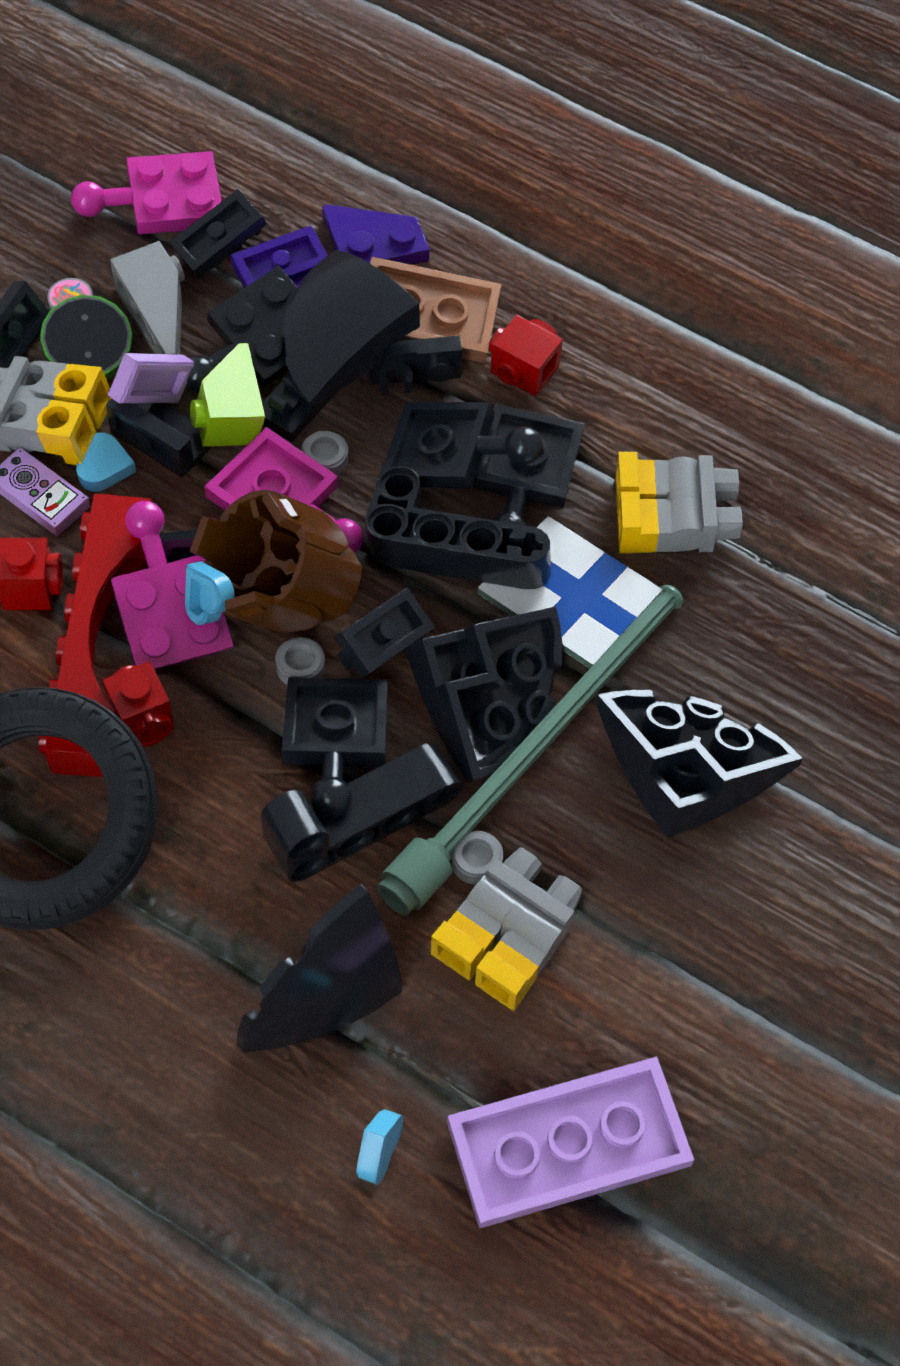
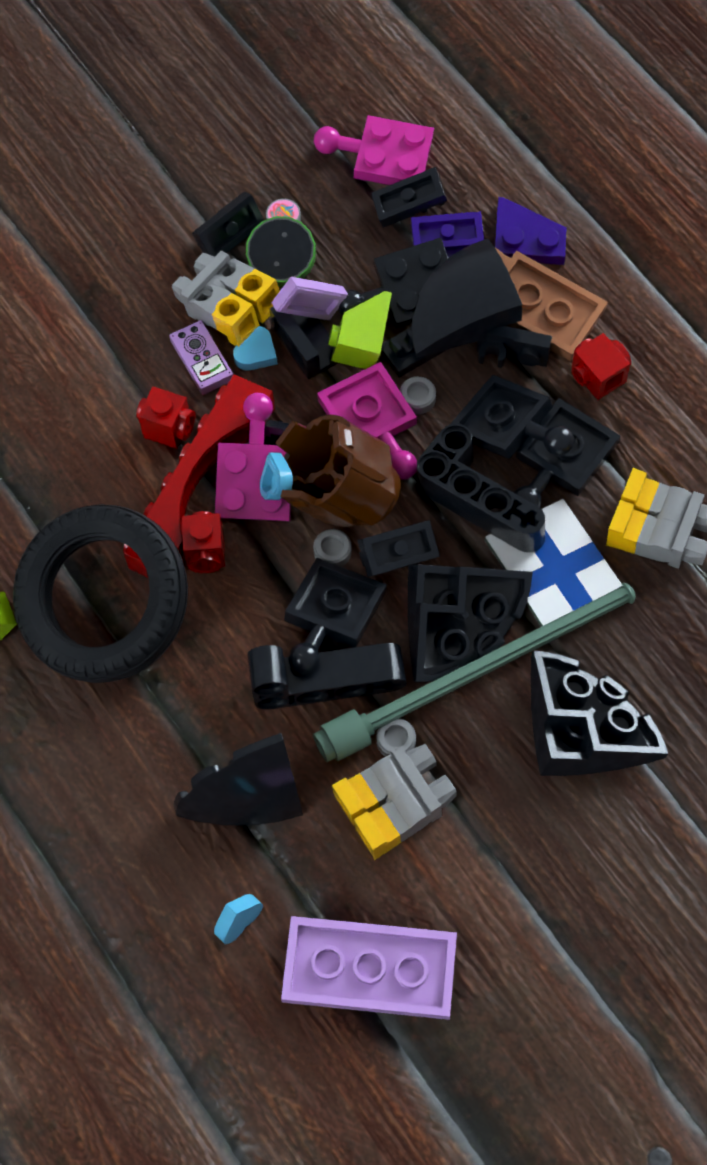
camera: 30 degrees right, 5 degrees up
(152, 294) = (343, 232): light grey slope -> none

